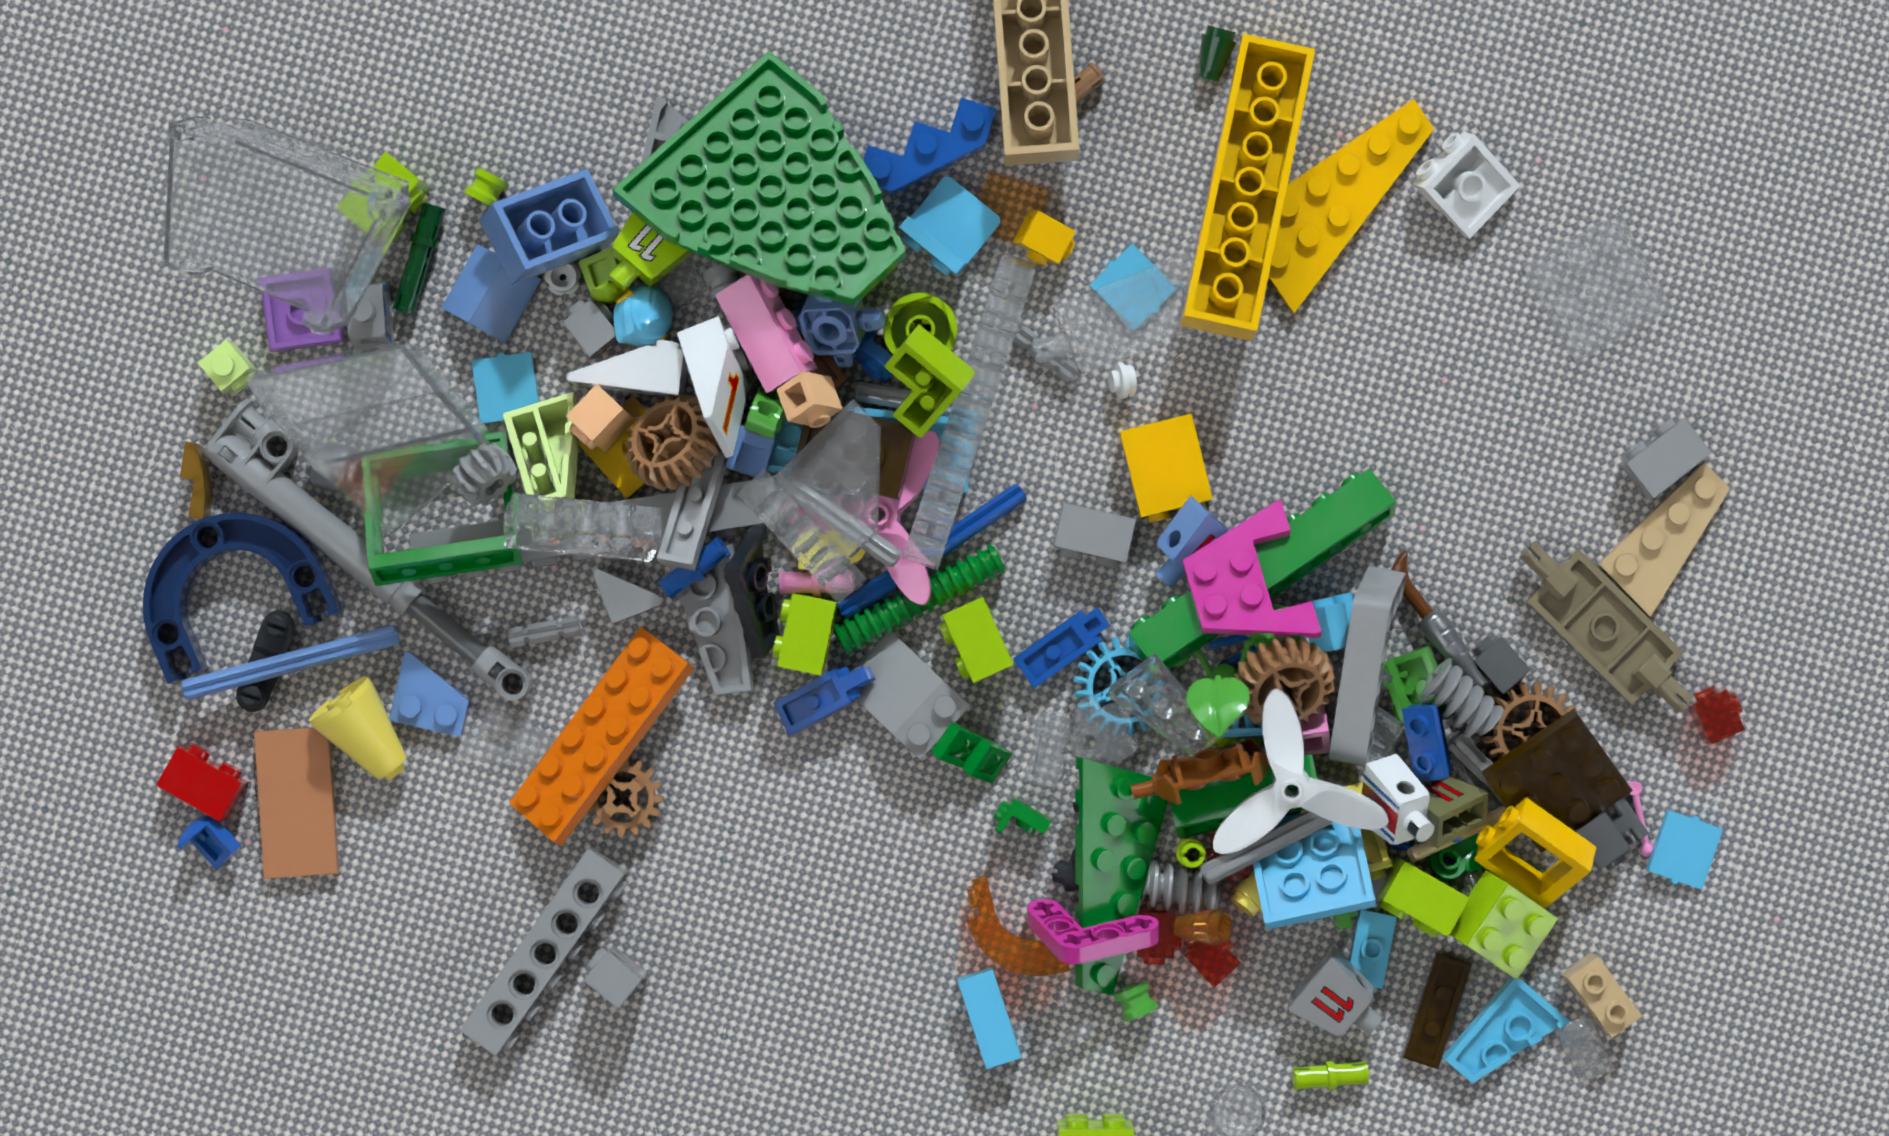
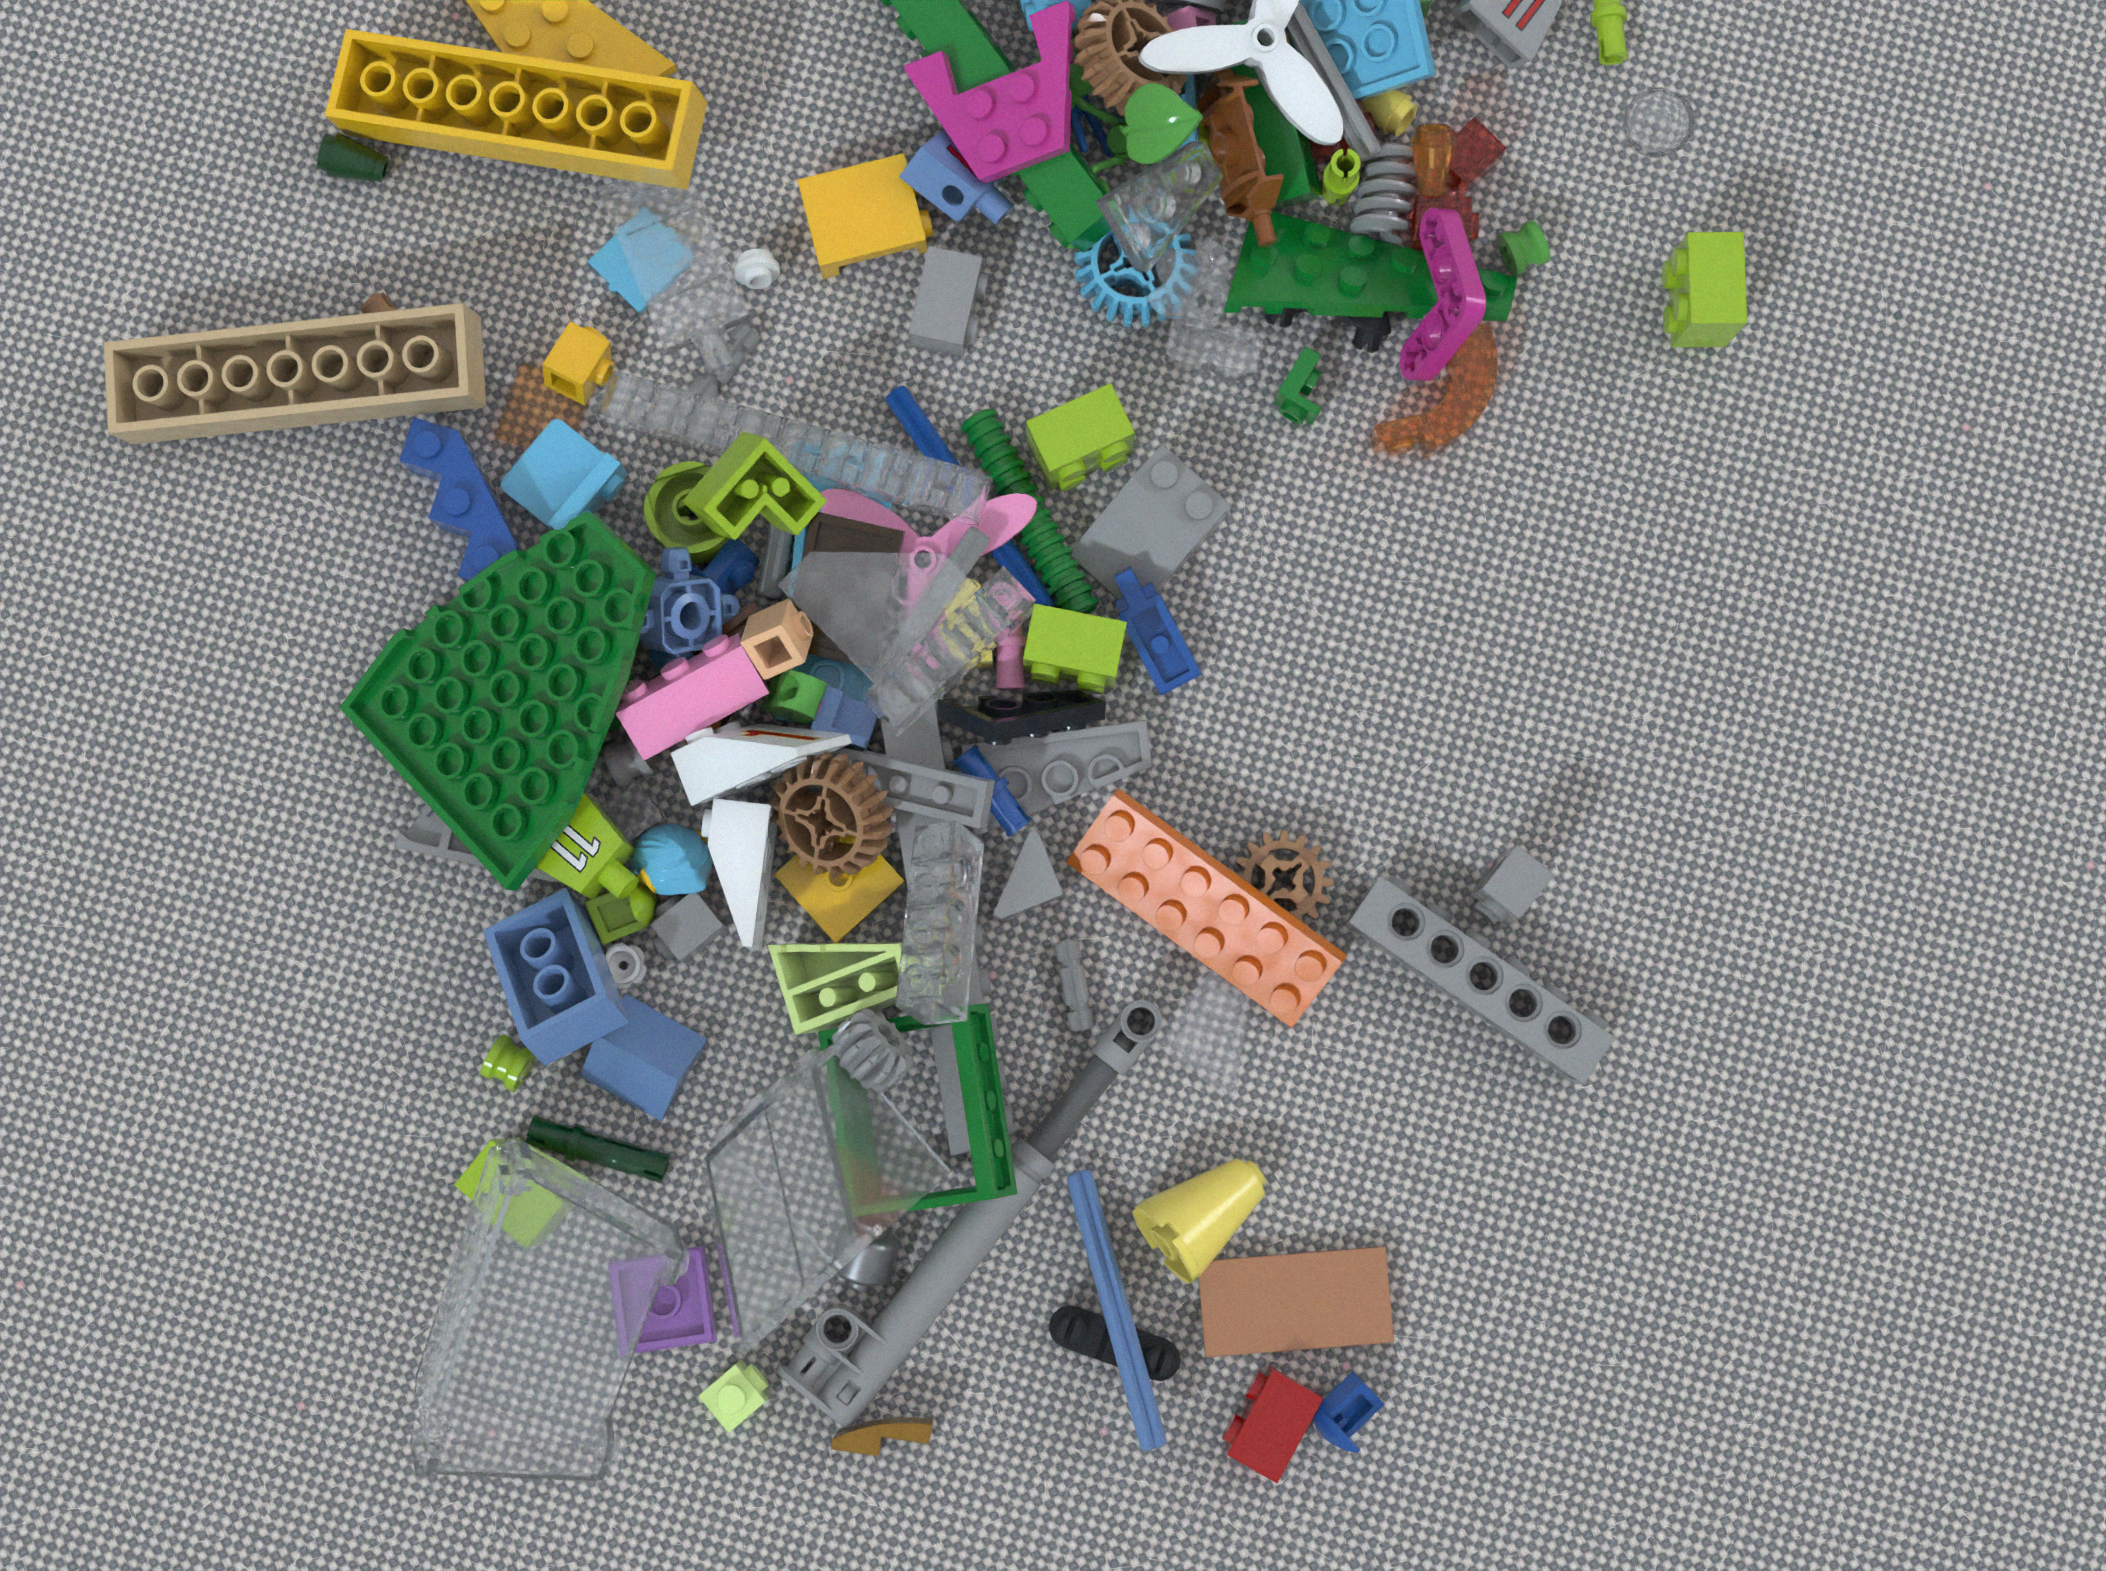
camera: 90 degrees left, 5 degrees down
(186, 554) = (978, 1448): dark blue piece -> none
(373, 317) = (676, 1204): light grey torso -> none
(427, 699) = (1161, 1133): medium blue wing -> none
(504, 384) = (759, 1039): medium azure piece -> none
(599, 419) = (802, 908): light nougat brick -> none
(971, 752) = (1220, 447): green slope -> none
(989, 1017) = (1549, 425): medium azure piece -> none
(1061, 646) = (1086, 339): blue hinge -> none

